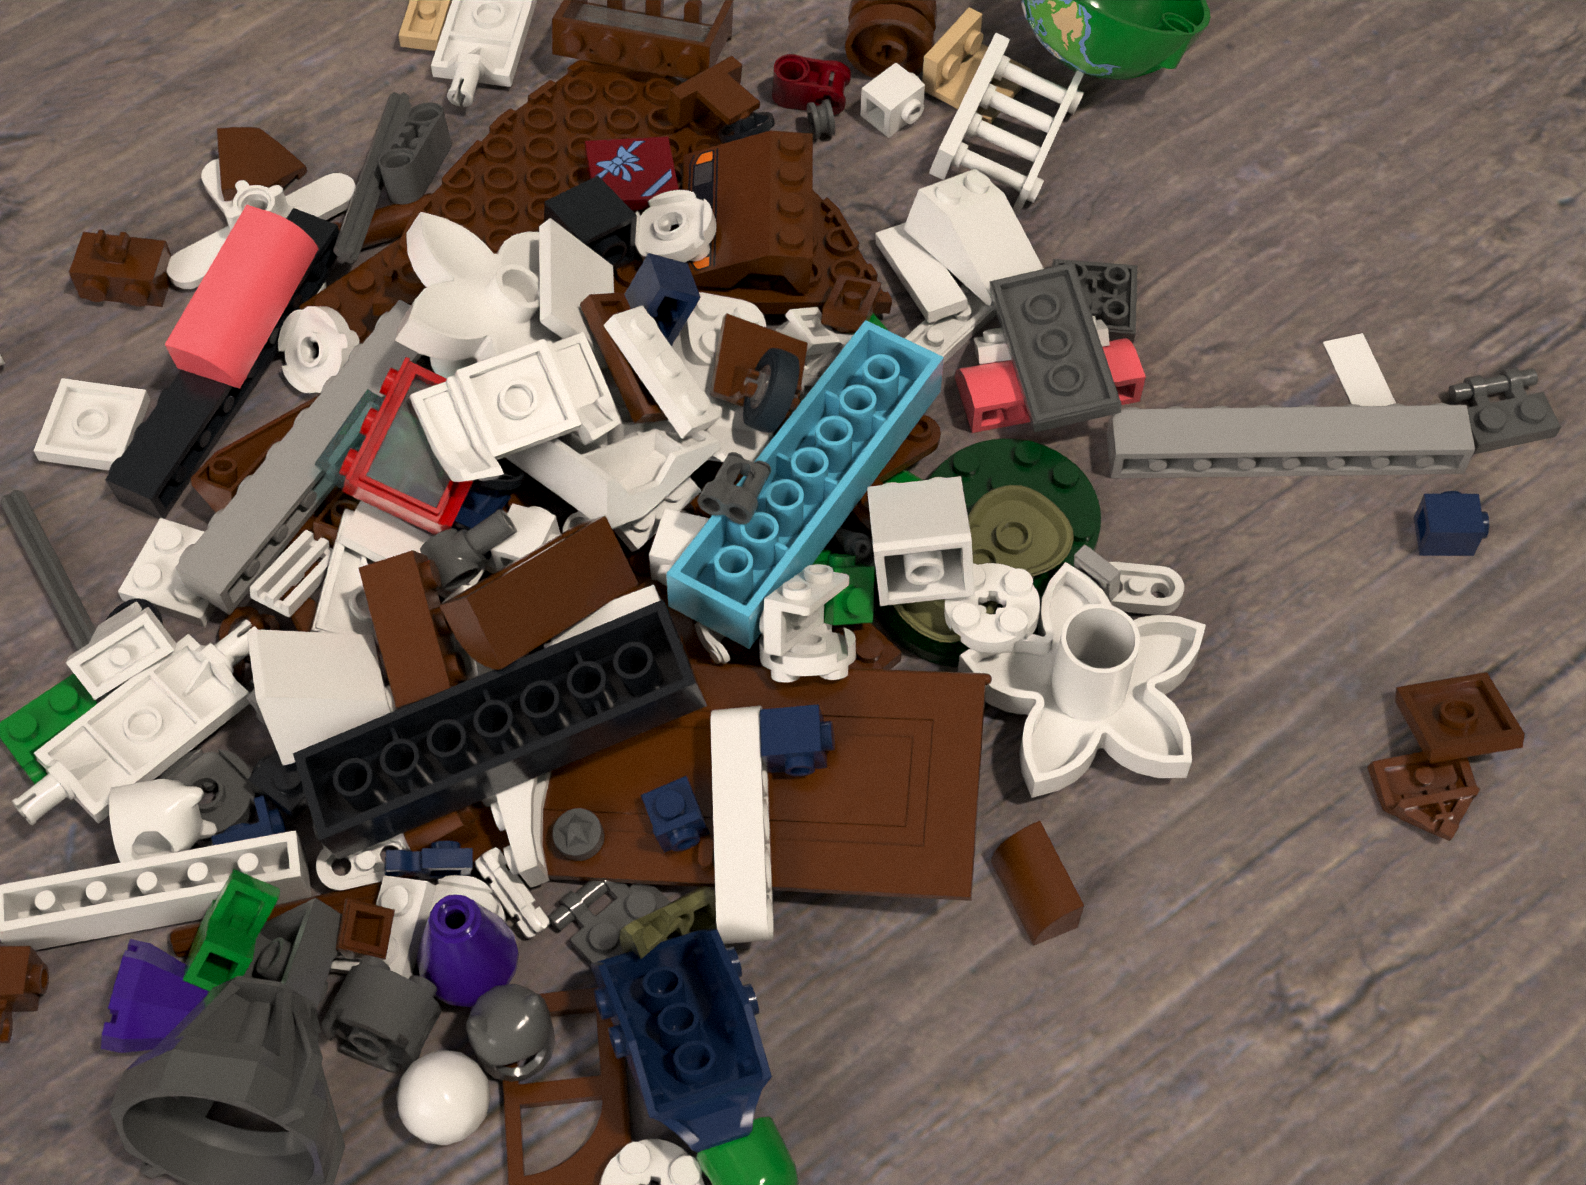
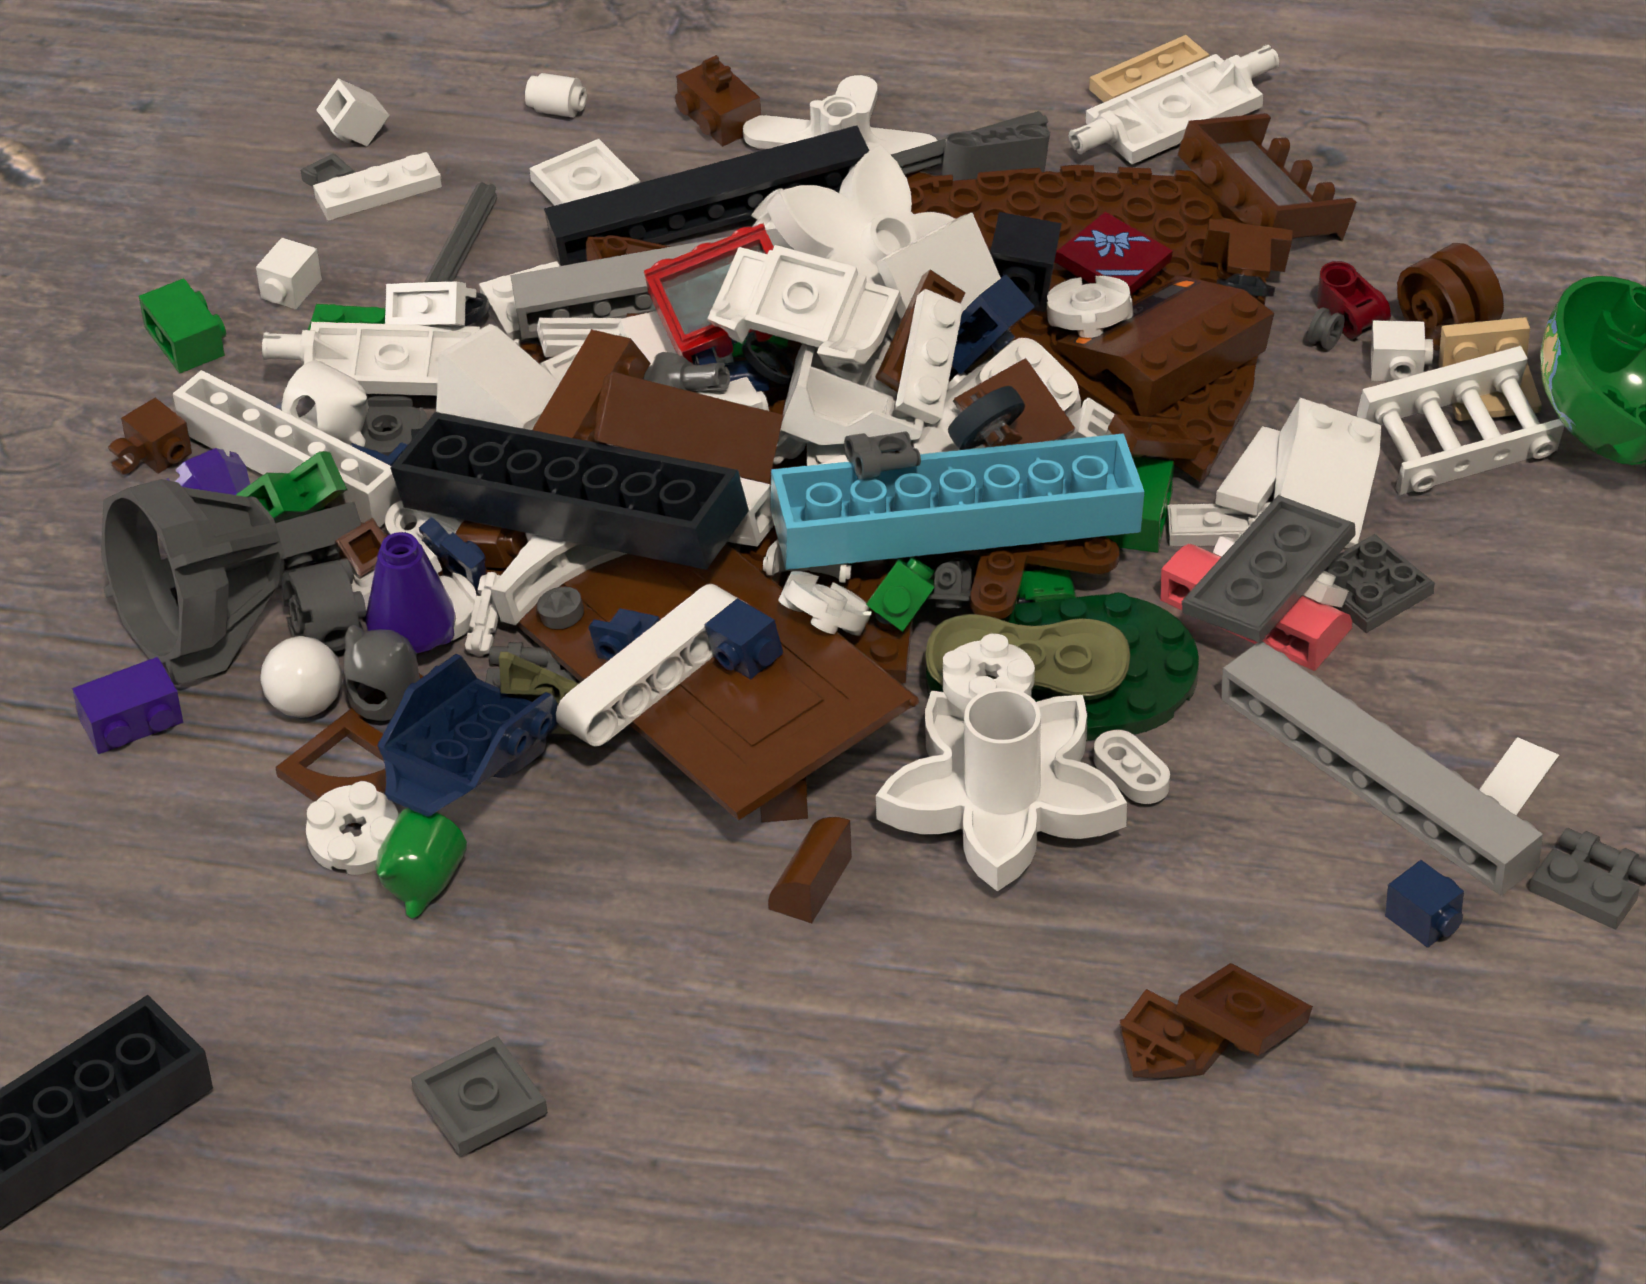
camera: 50 degrees right, 15 degrees down
(241, 297) = (749, 151): coral brick -> none
(255, 158) = (889, 92): reddish brown slope -> none
(798, 607) = (838, 562): white bracket -> none
(921, 541) = (975, 586): white slope -> none
(1099, 570) = (1097, 722): light grey tile -> none

